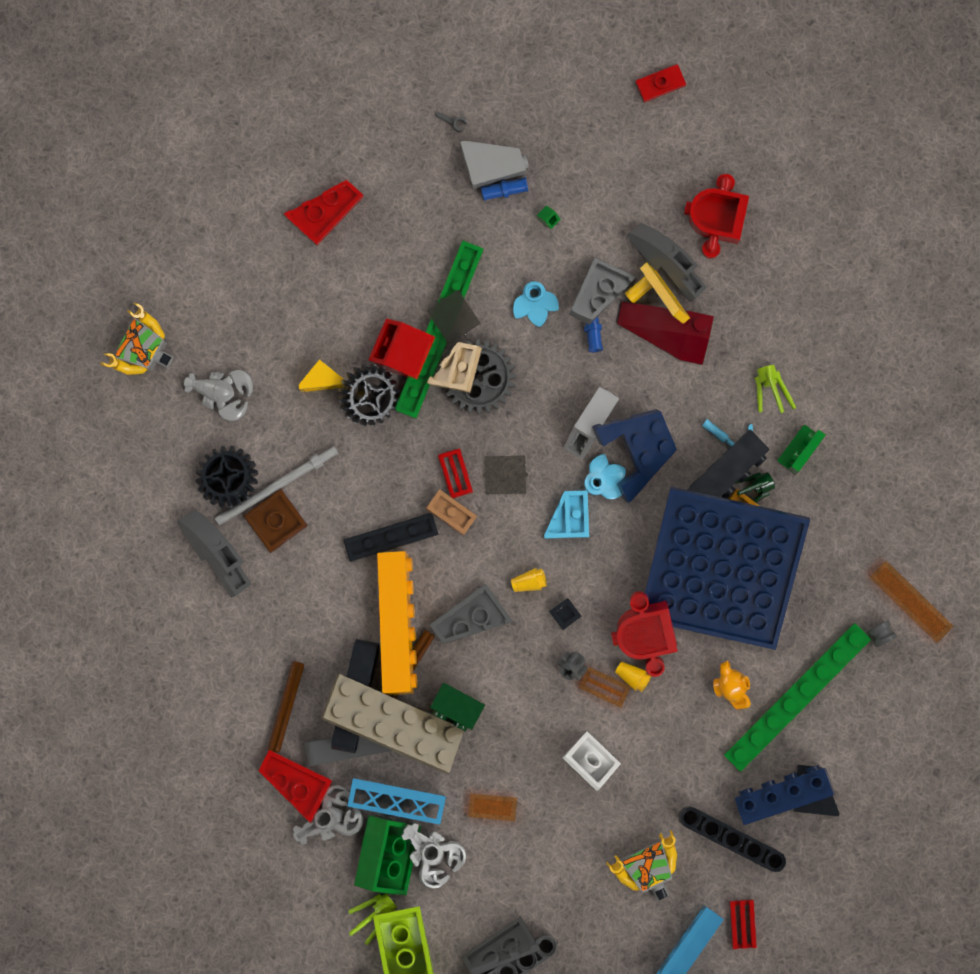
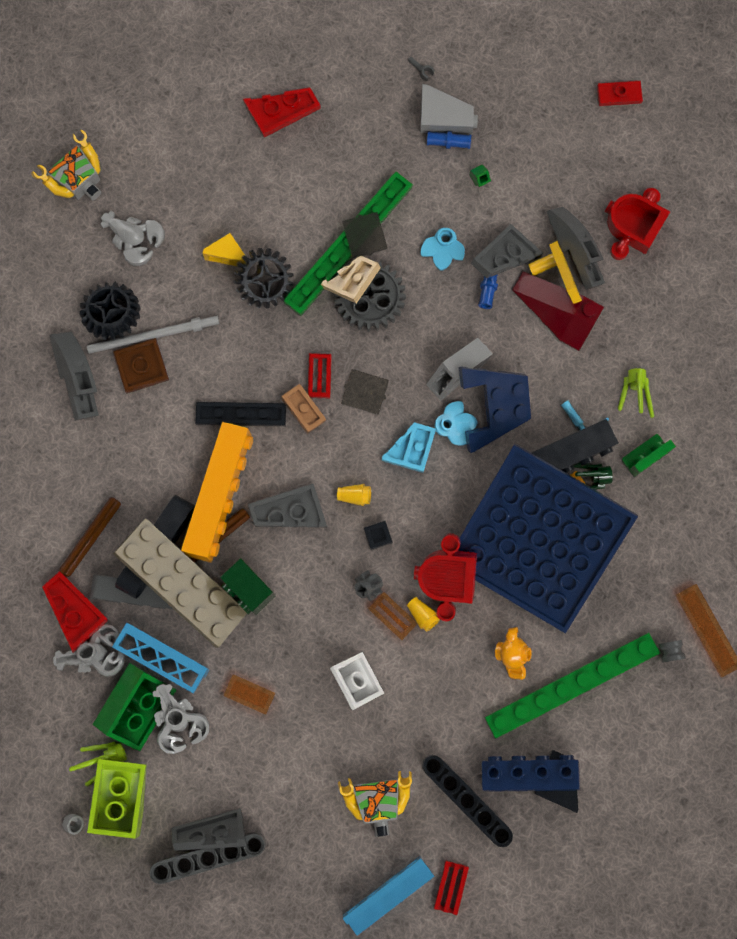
camera: 15 degrees right, 5 degrees down
(401, 348) = (307, 246): red slope -> none

